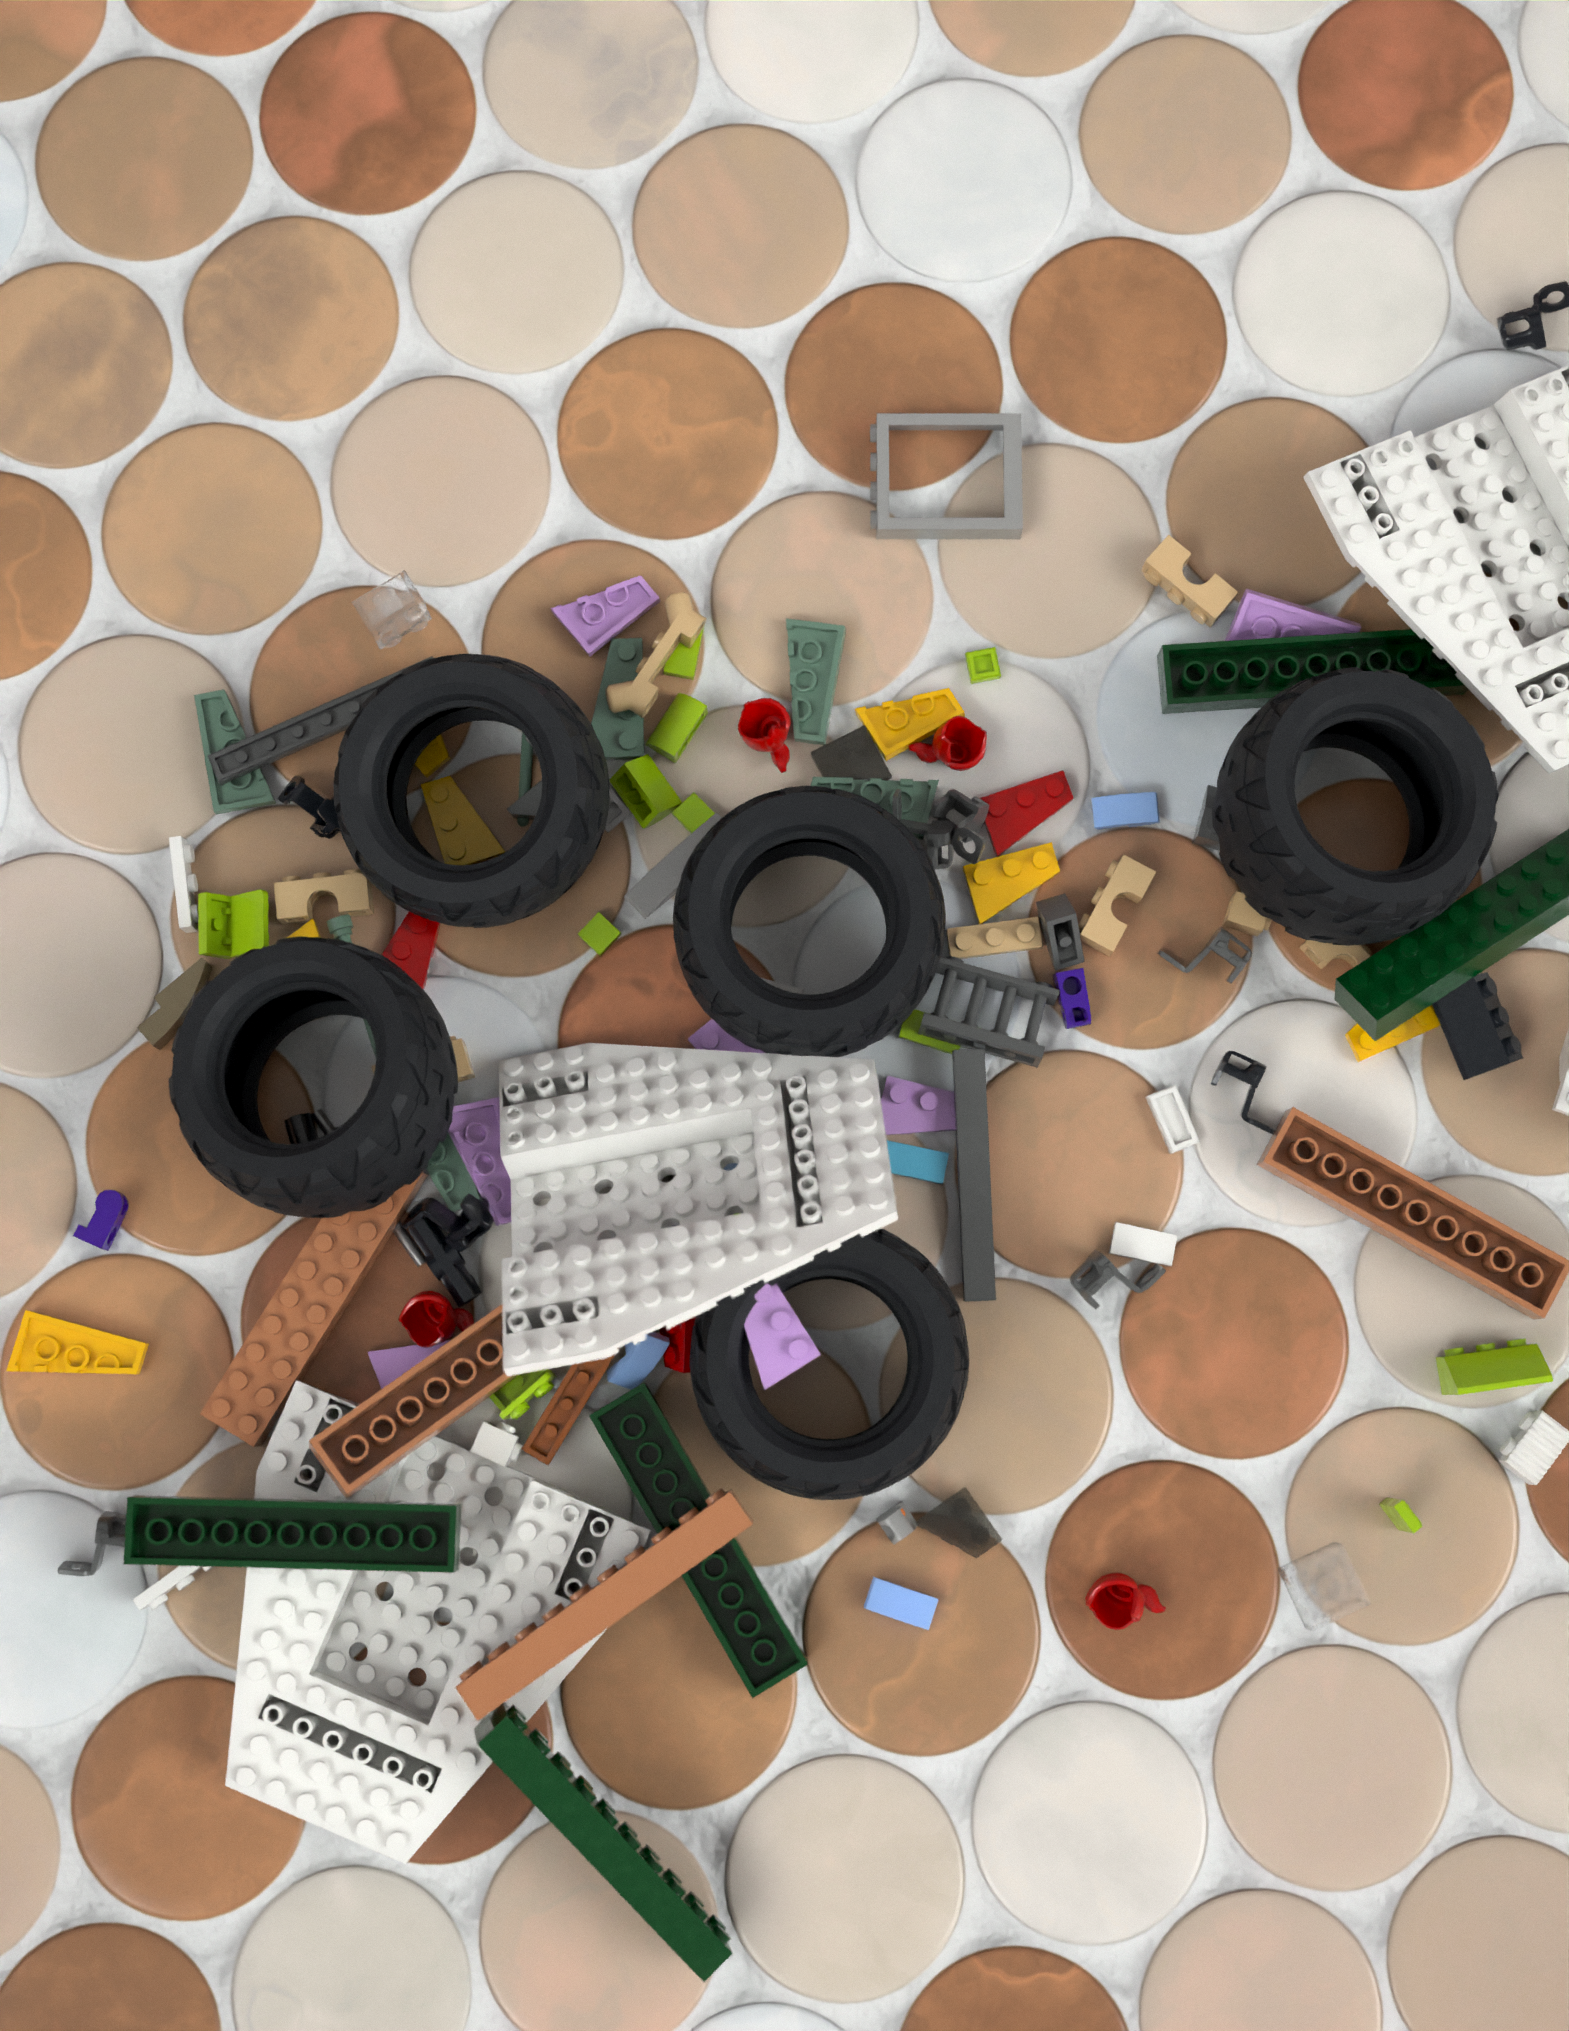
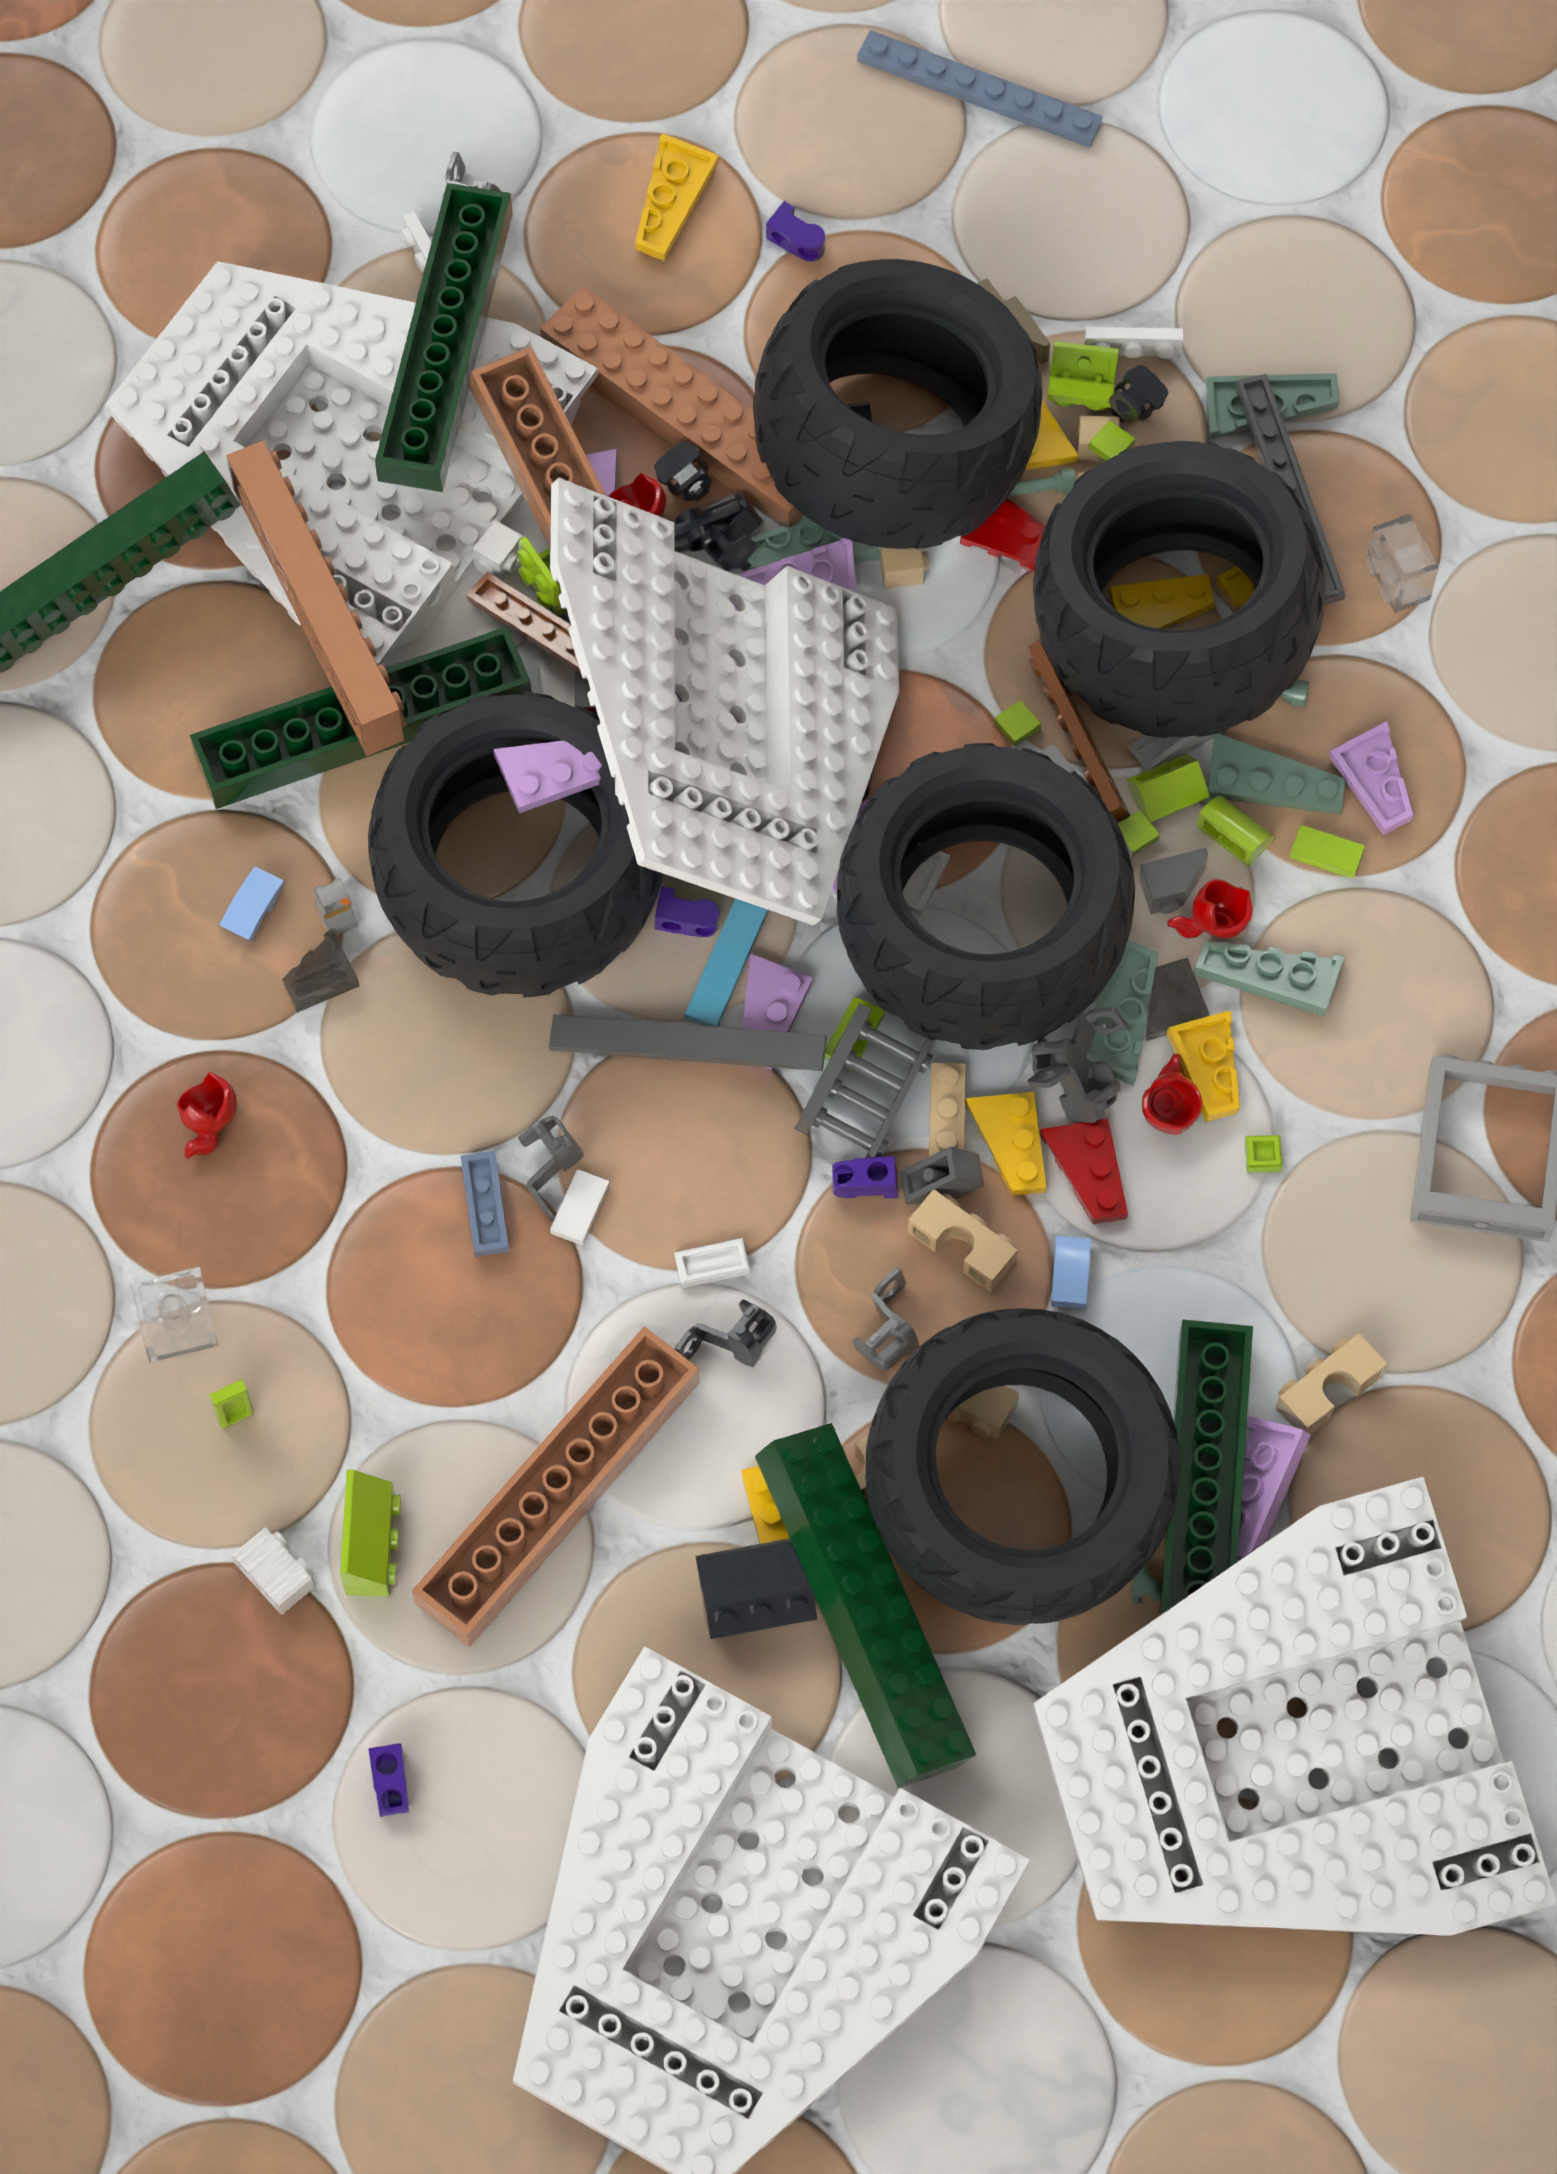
camera: 100 degrees right, 15 degrees down
(246, 869) = (1144, 388): none -> black piece
(306, 884) = (1111, 441): none -> lime tile
(388, 1280) = (677, 464): none -> black piece
(614, 871) = (1083, 743): none -> dark orange plate
(638, 1361) = (551, 681): light blue slope -> none
(641, 693) = (1344, 843): tan plate -> none
(740, 774) = (1171, 880): none -> dark grey slope
(1158, 1329) = (484, 1204): none -> sand blue plate

